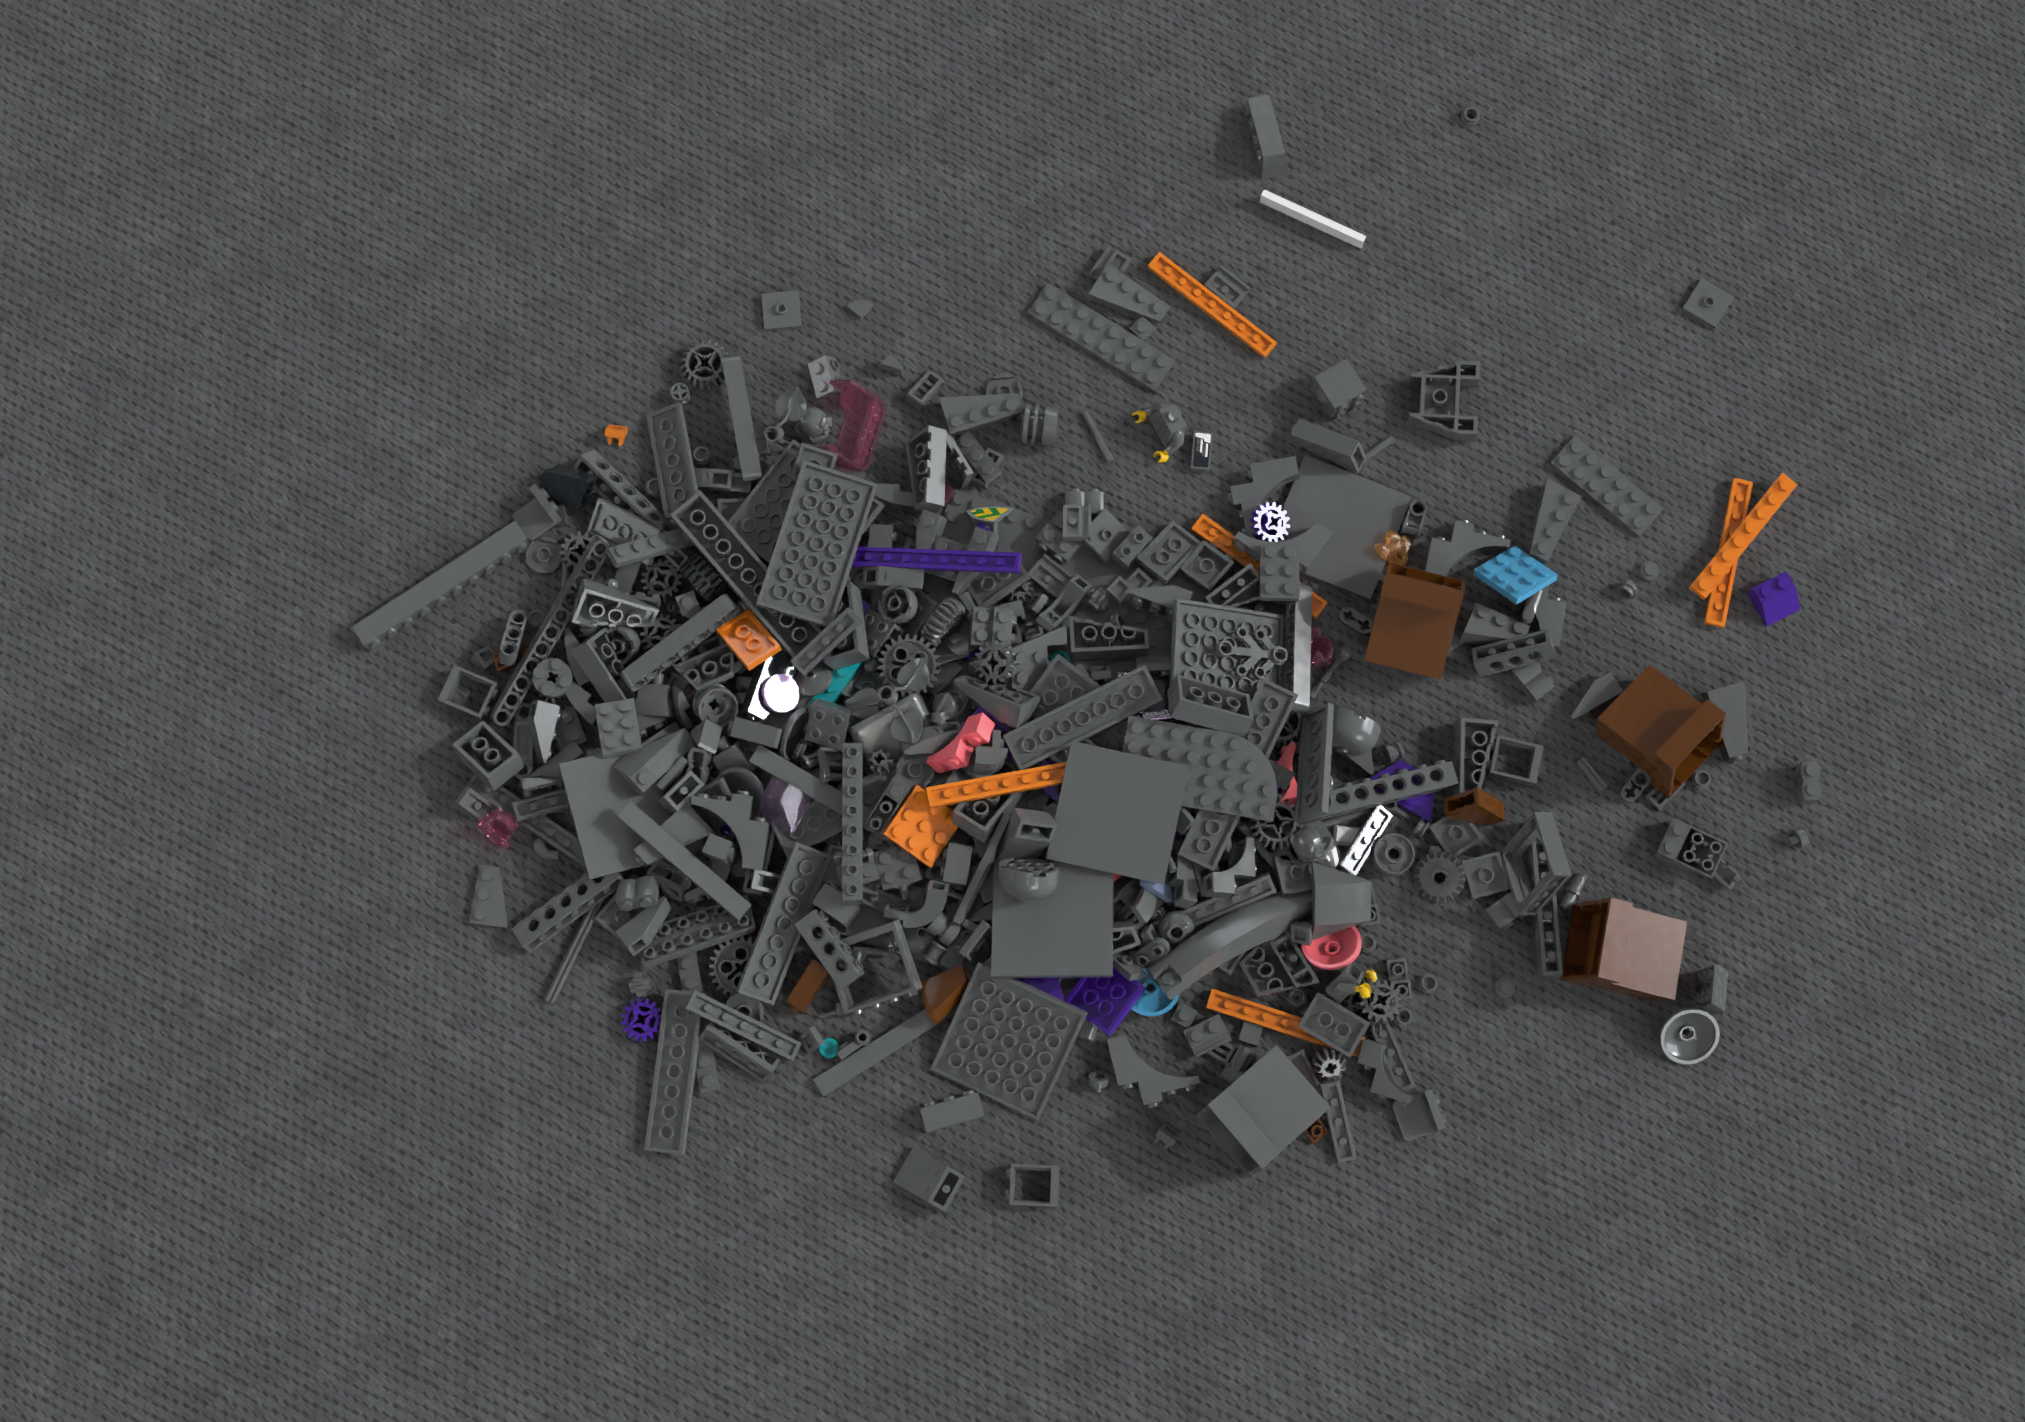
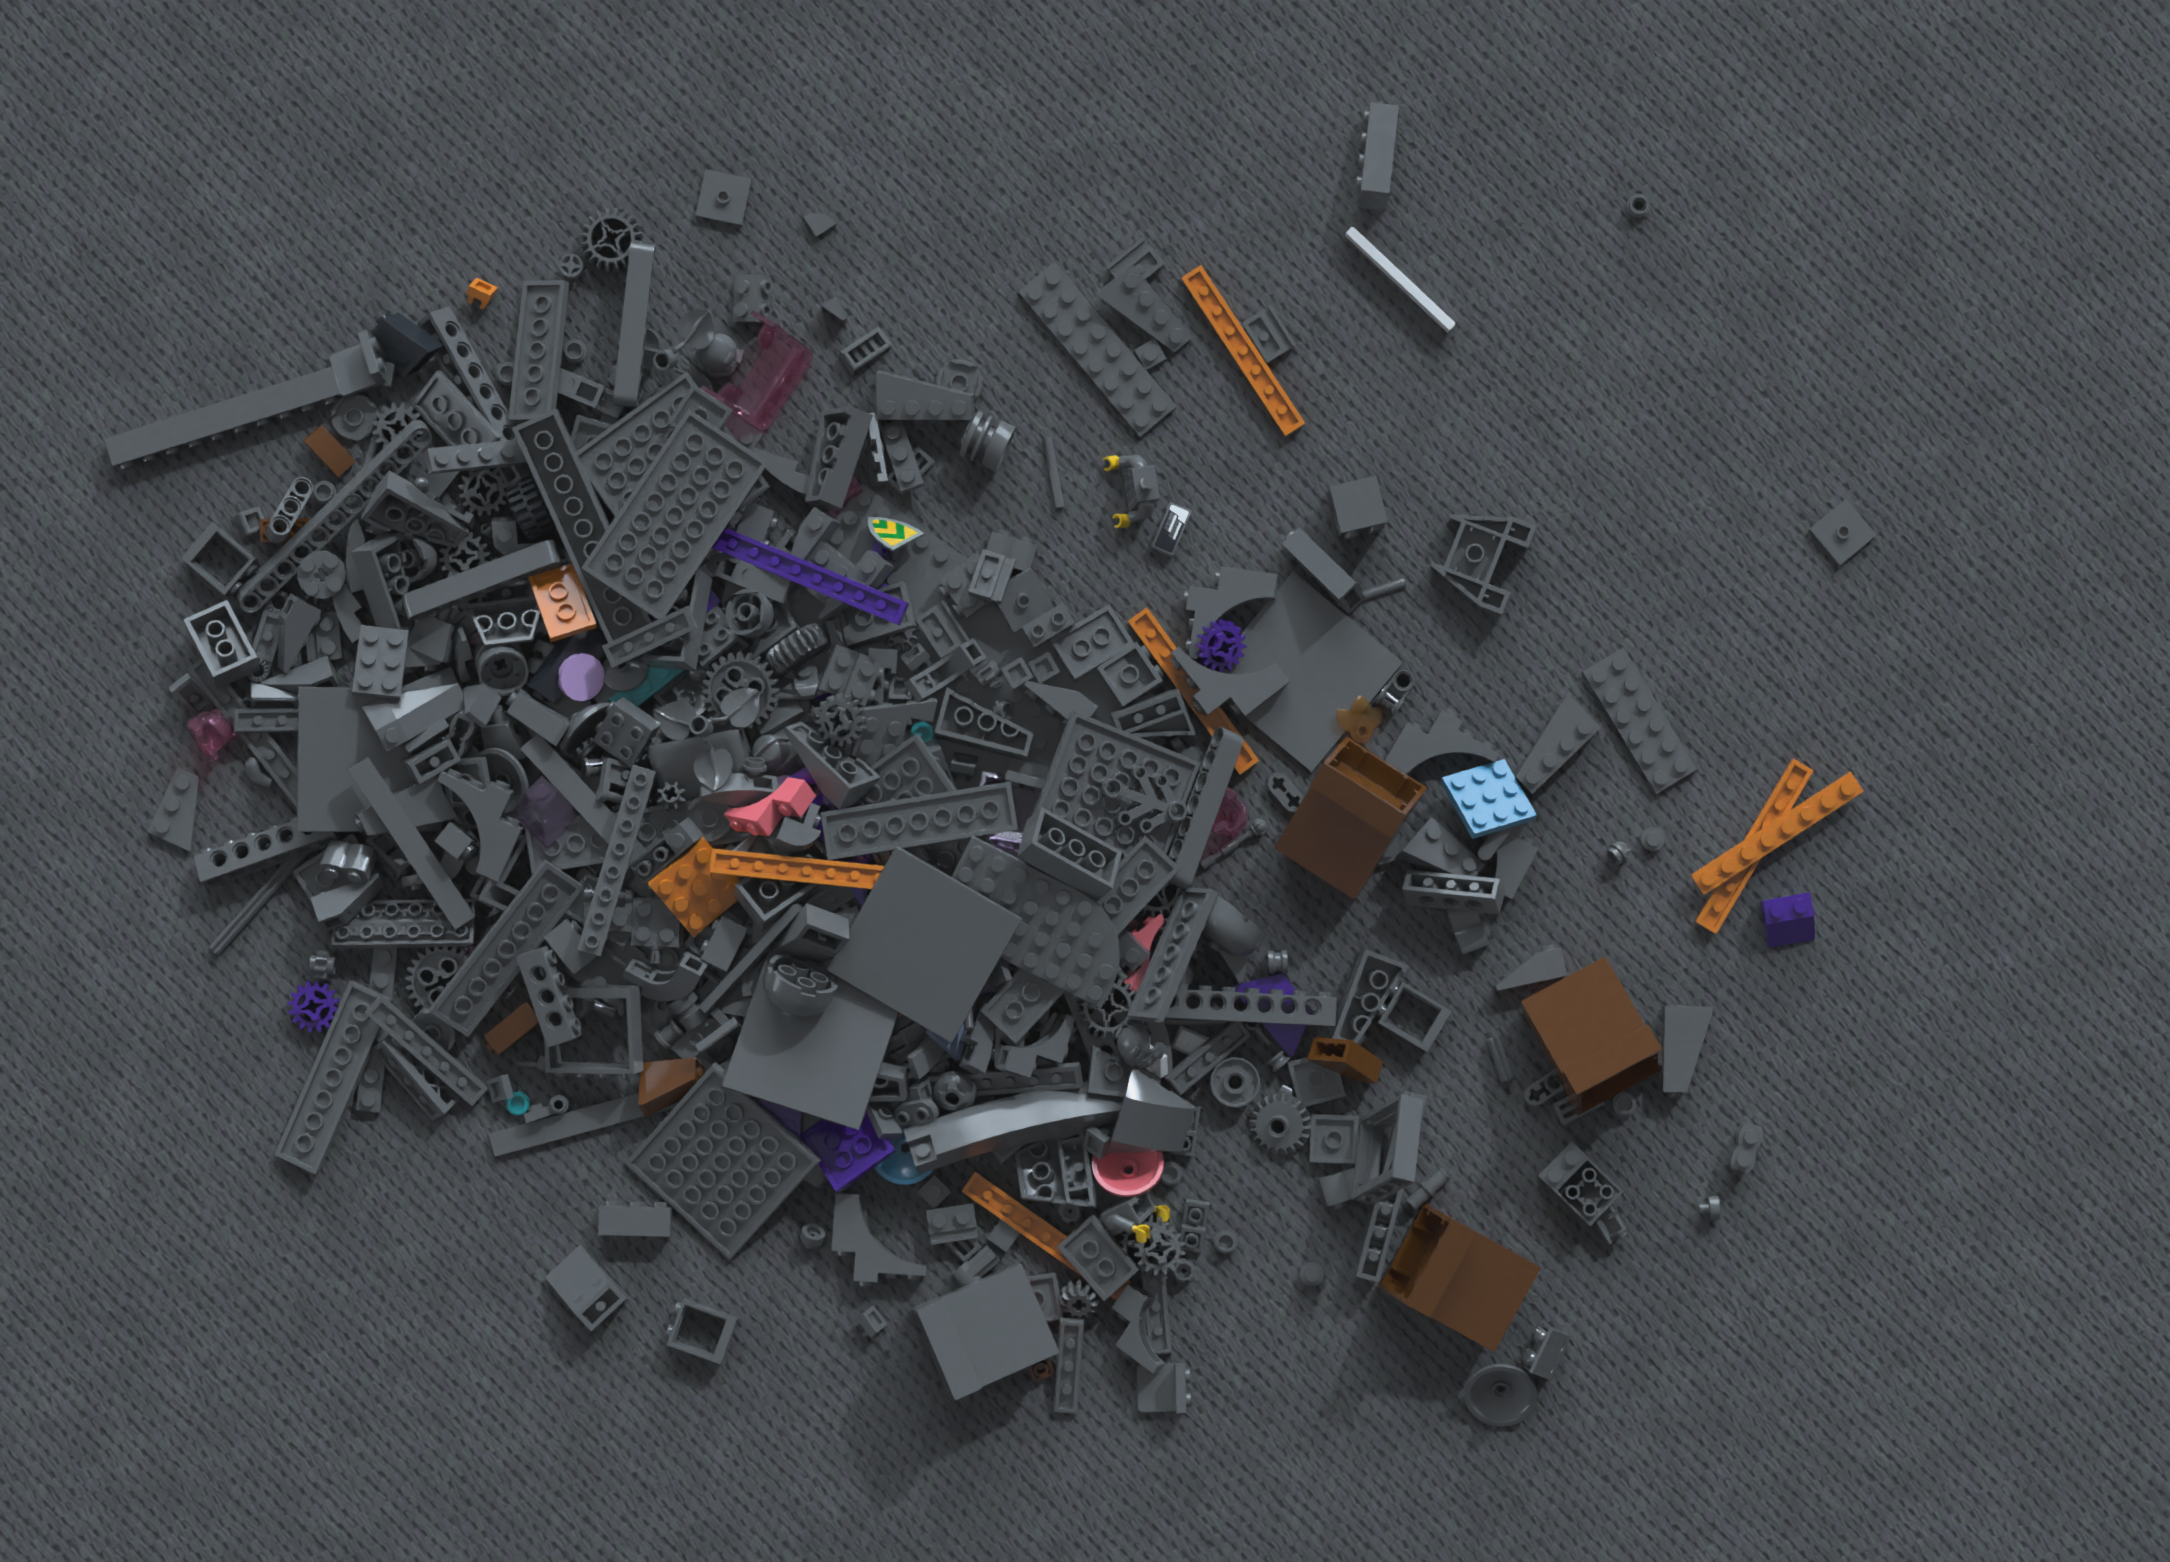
camera: 20 degrees right, 10 degrees up
(532, 585) = (329, 450): none -> reddish brown slope
(1279, 572) = (1209, 712): dark grey plate -> none

